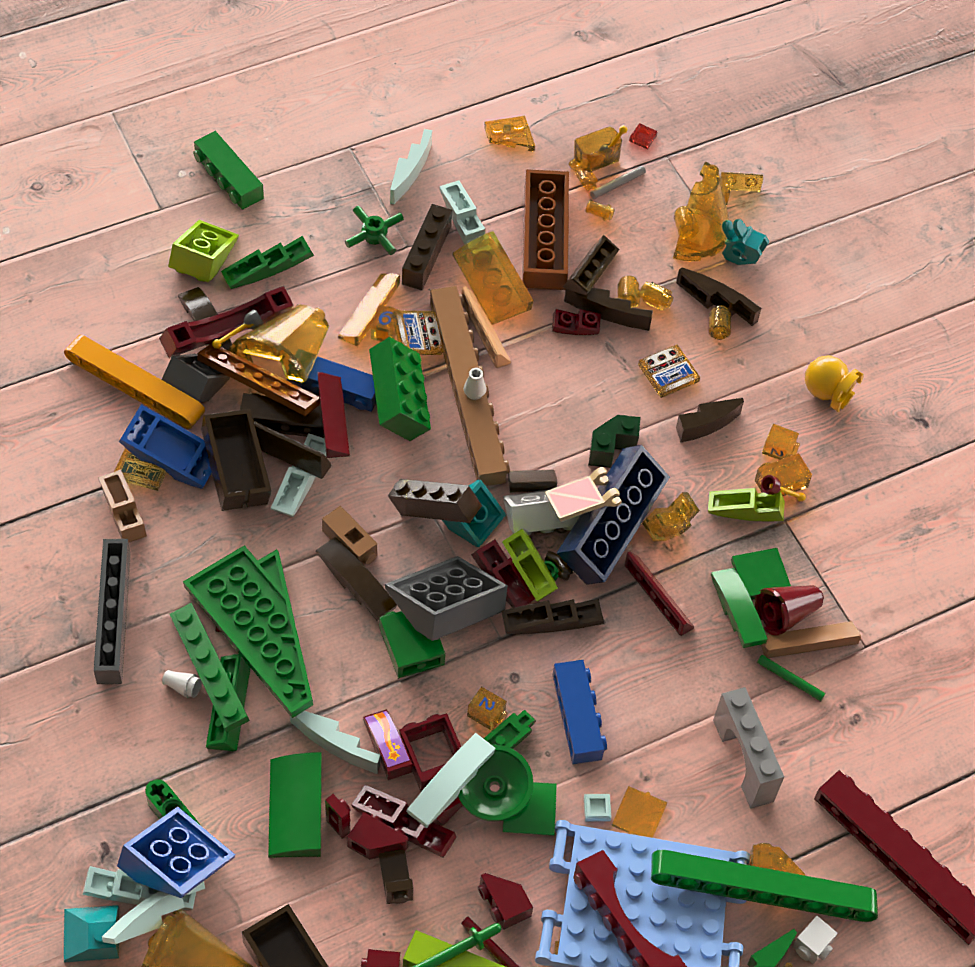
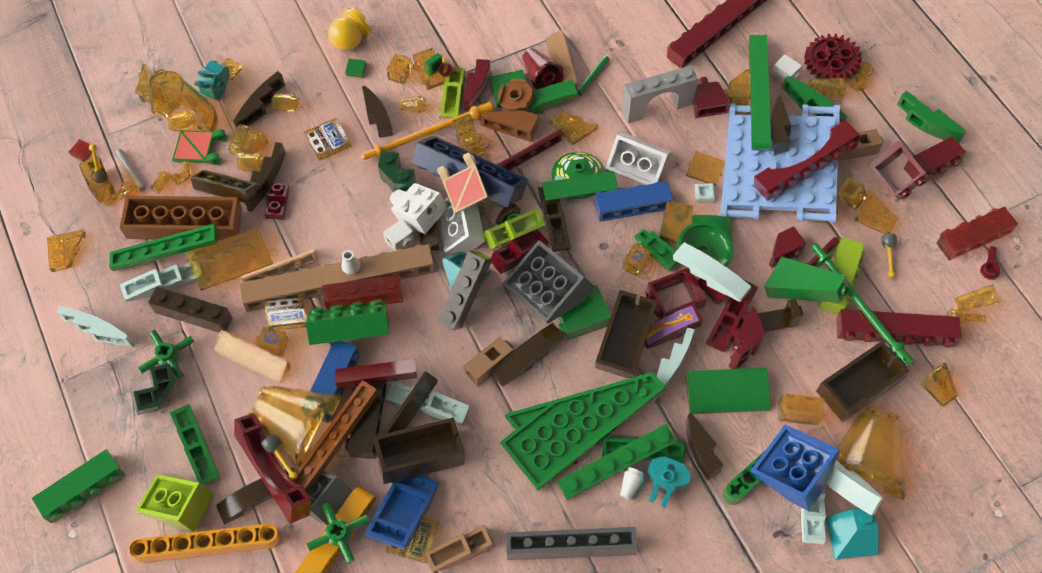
camera: 85 degrees left, 5 degrees up
(145, 382) = (331, 537): none -> green bar
(155, 277) = (196, 540): none -> light orange beam
(182, 719) = (667, 478): none -> teal hinge
(220, 764) = (702, 447): none -> dark brown slope
(258, 883) = (801, 409): none -> clear yellow brick
(335, 226) = (151, 398): none -> dark green brick
(372, 681) = (626, 334): none -> dark brown piece
(443, 907) = (805, 282): none -> green slope
(444, 408) = (363, 291): none -> clear red brick
(504, 214) = (163, 247): none -> green plate
(524, 445) = (399, 235): none -> white brick
(547, 759) = (675, 219): none -> clear yellow piece
(560, 459) = (418, 207): none -> white brick
(596, 644) = (579, 185): none -> green slope
(611, 232) = (180, 178): none -> clear yellow arm
(623, 664) = (567, 167): none -> green dish
(647, 722) = (637, 159): none -> white slope
(652, 240) = (196, 146): none -> flag
(661, 277) = (239, 137): none -> clear yellow beam
(695, 899) = (780, 127): none -> dark brown slope
(698, 645) = (572, 126): none -> clear yellow wing
(700, 576) = (513, 123): none -> dark orange slope
(715, 529) = (475, 112): none -> light orange bar
(725, 461) = (414, 104): none -> clear yellow cone
(743, 582) = (520, 103): none -> dark orange plate
(755, 822) = (709, 99): none -> dark red torso
(761, 531) = (477, 83): none -> dark red slope
(768, 264) = (234, 67): none -> clear yellow plate
(777, 468) = (432, 64): none -> green tile
(782, 398) = (355, 68): none -> green tile

